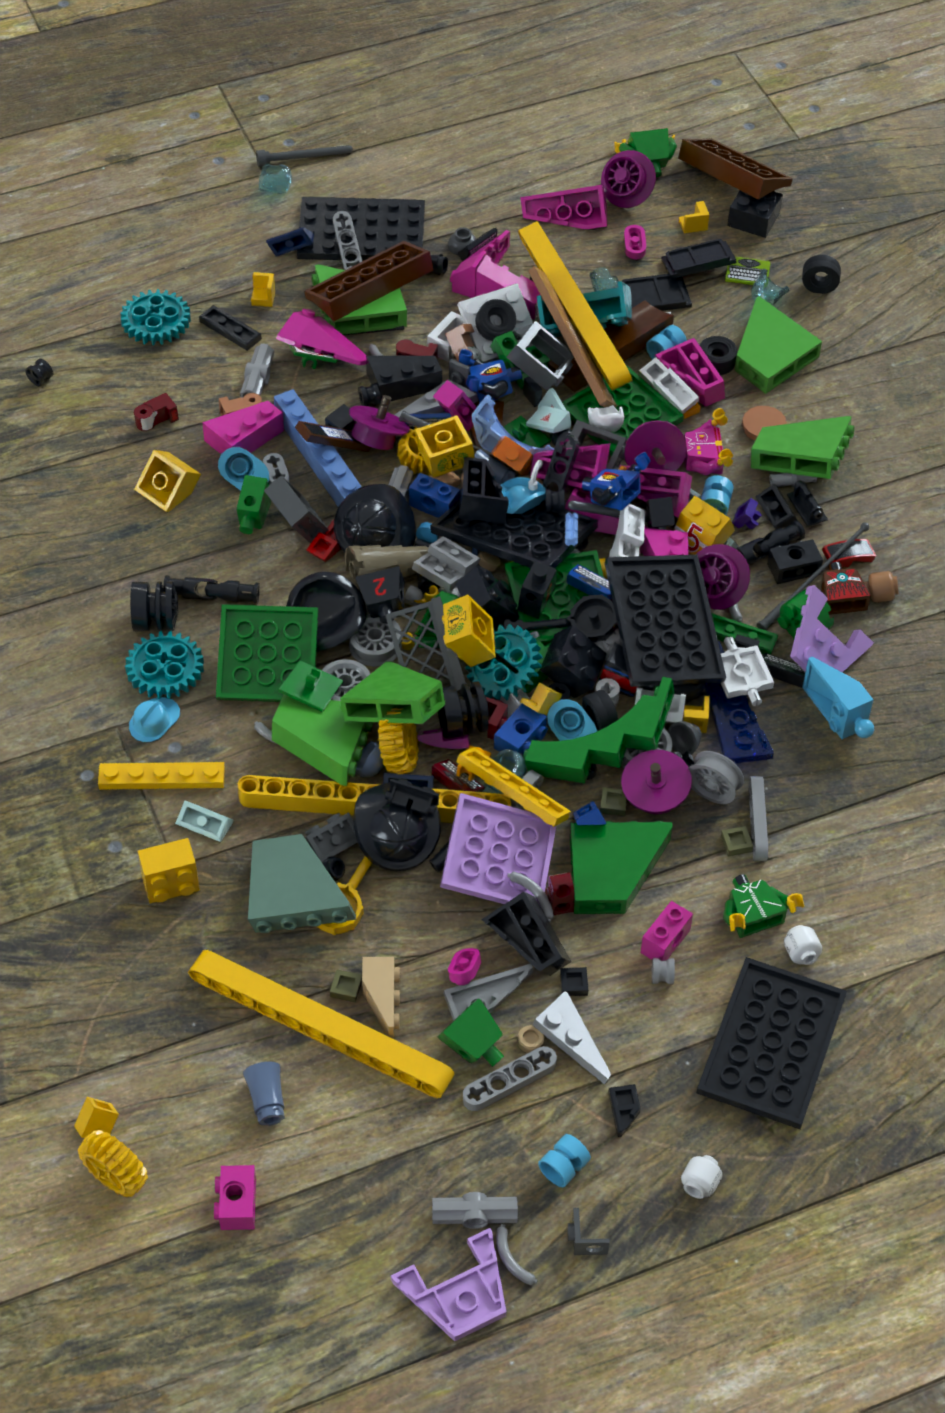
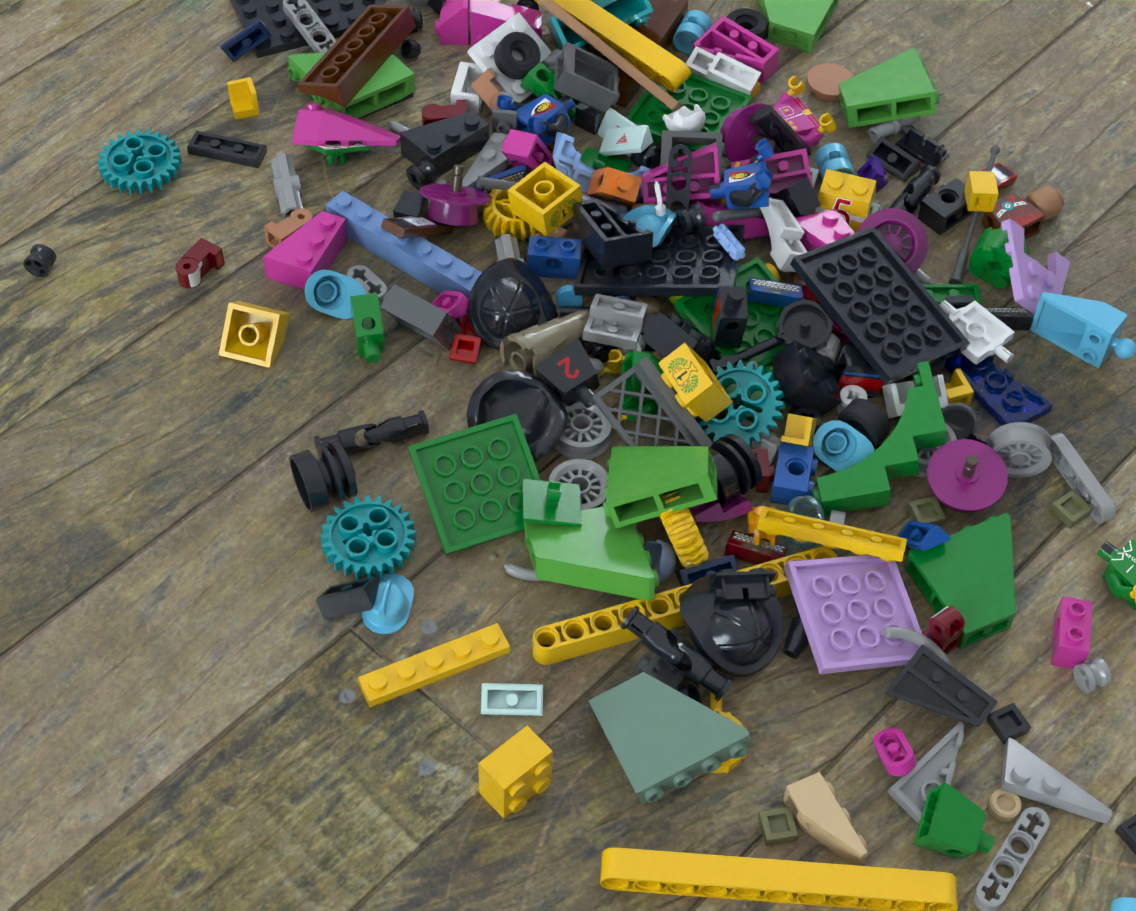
camera: 25 degrees left, 0 degrees up
(123, 703) = (348, 598): none -> black slope
(327, 508) = (452, 302): none -> dark pink plate
(335, 827) = (666, 645): none -> black piece
(422, 288) = (410, 49): none -> black hinge
(676, 452) = (774, 127): none -> black tile
(820, 556) = (981, 191): none -> yellow panel

